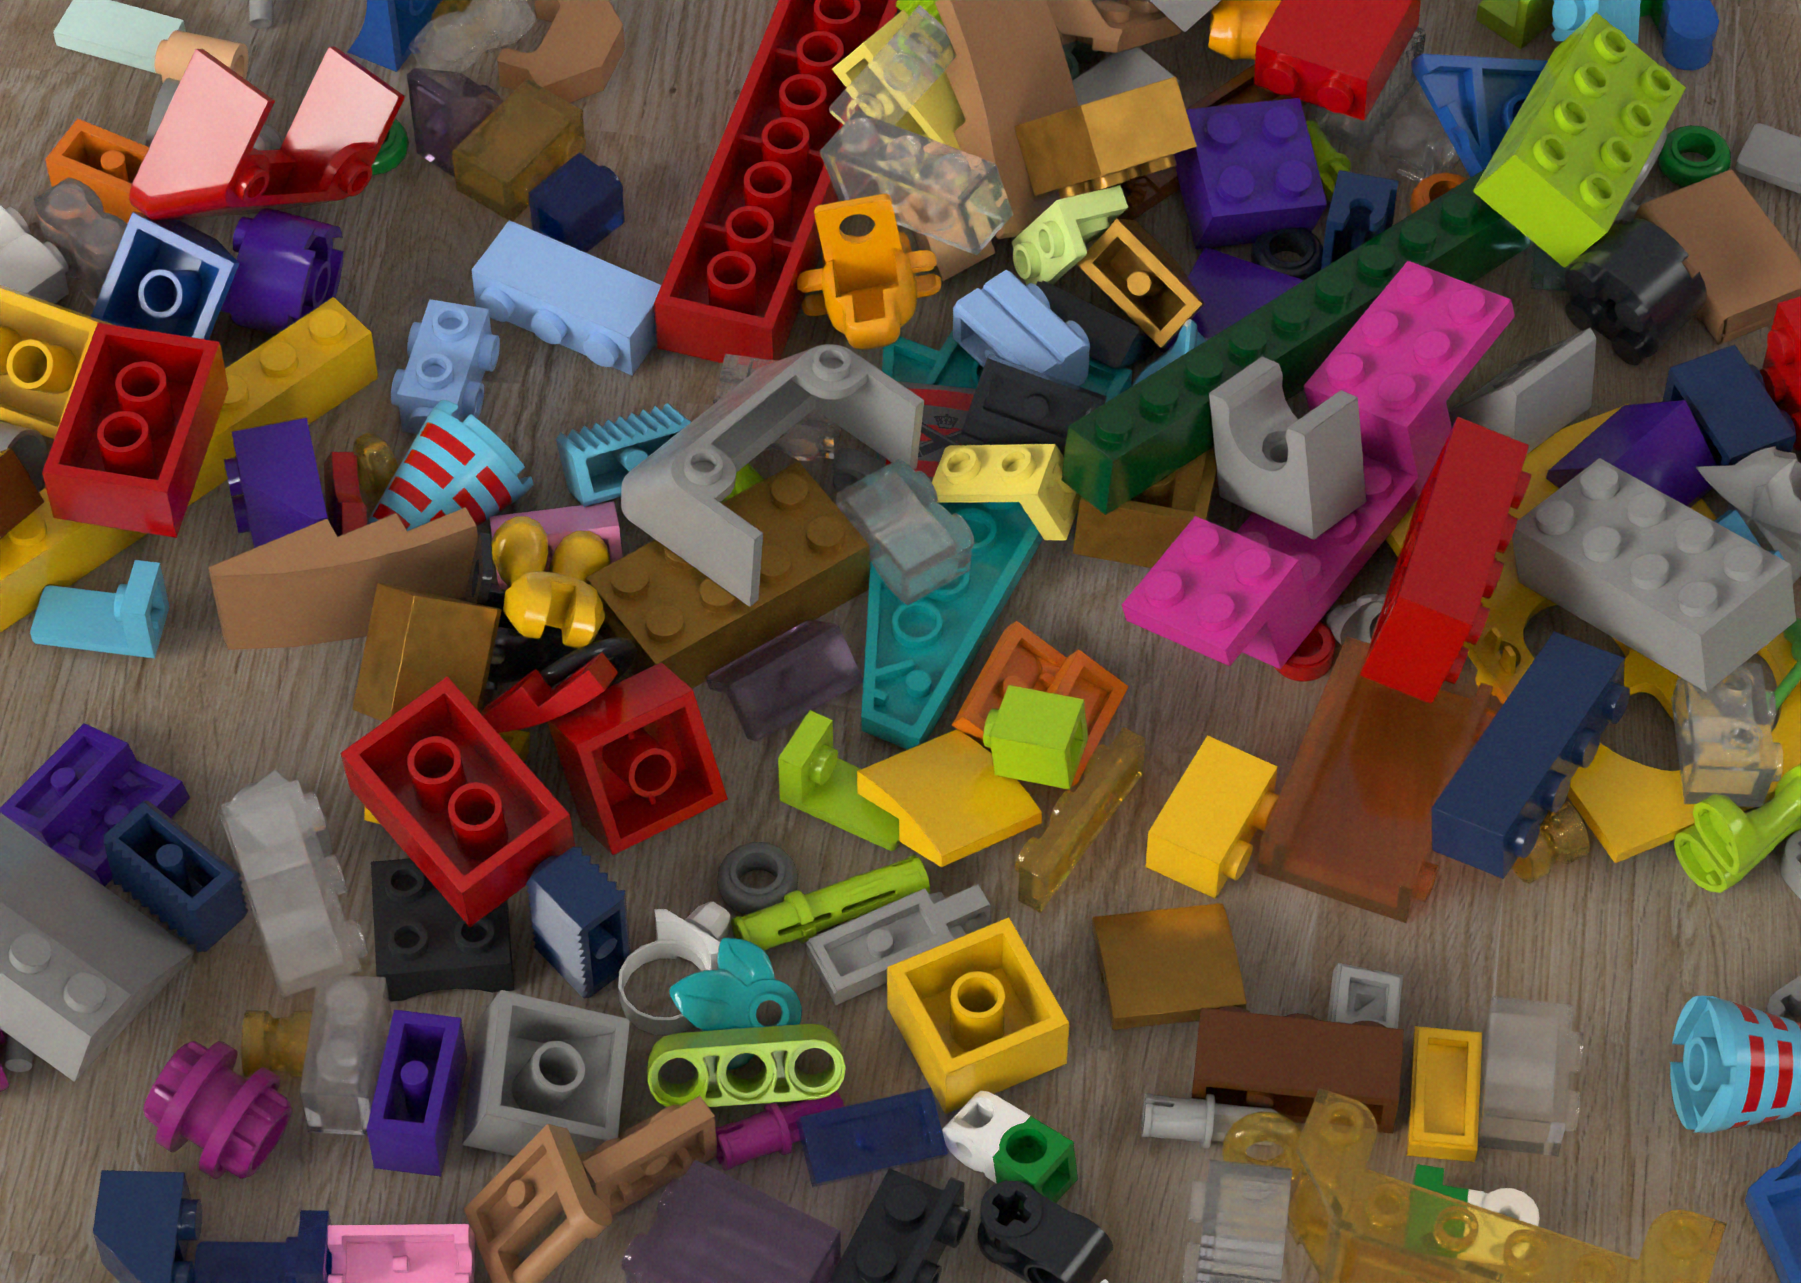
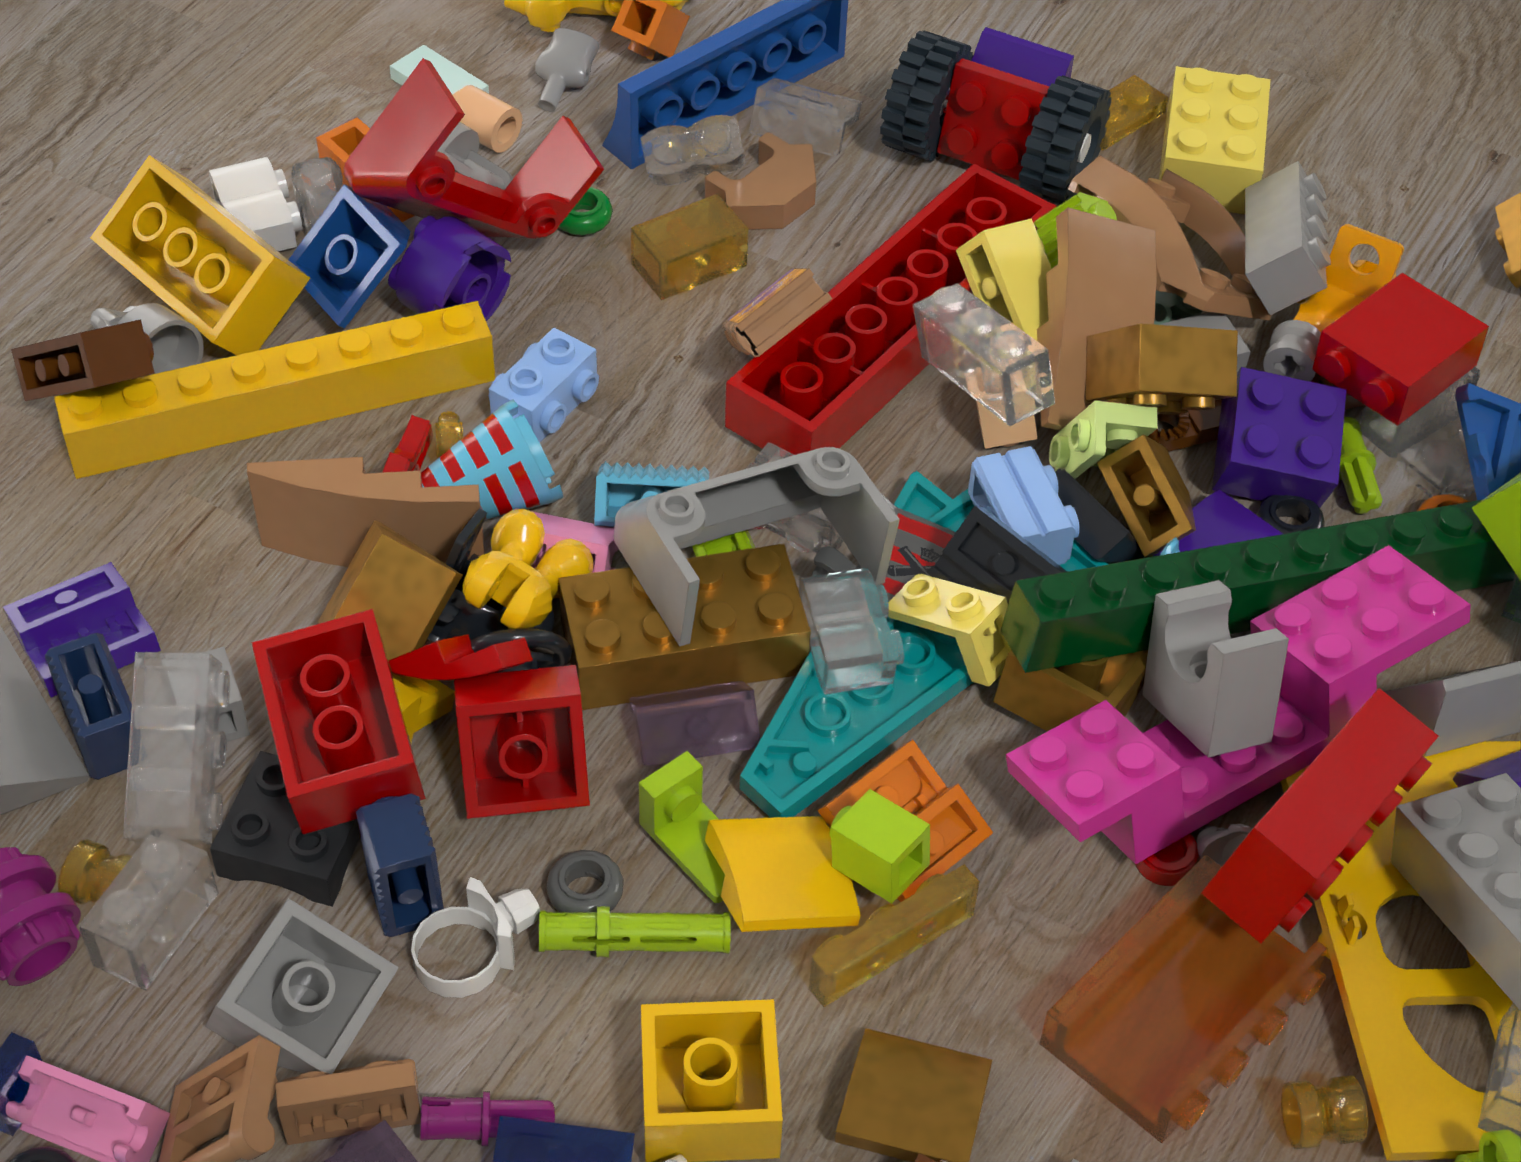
camera: 20 degrees right, 5 degrees down
(105, 621) = (182, 491): medium azure bracket -> none
(136, 430) = (250, 340): red brick -> none
(277, 480) = (354, 417): dark purple slope -> none
(417, 1093) = (183, 965): dark purple brick -> none
(446, 111) = (642, 193): slope -> none
(567, 297) = (667, 363): light blue brick -> none
(578, 204) = (709, 297): clear blue brick -> none
(668, 204) = (775, 312): none -> medium nougat piece
(733, 992) = (492, 986): teal plate -> none
(776, 1082) = (452, 1058): lime beam -> none
(857, 953) = (674, 976): light grey hinge -> none
(869, 277) = (914, 420): light orange piece -> none
(899, 71) = (1007, 261): clear bracket -> none
(1212, 818) = (1013, 976): yellow brick -> none
(1225, 69) = (1292, 350): none -> light grey wheel
(1358, 212) = (1361, 493): dark blue hinge -> none
(1529, 755) = (1334, 1026): dark blue brick -> none

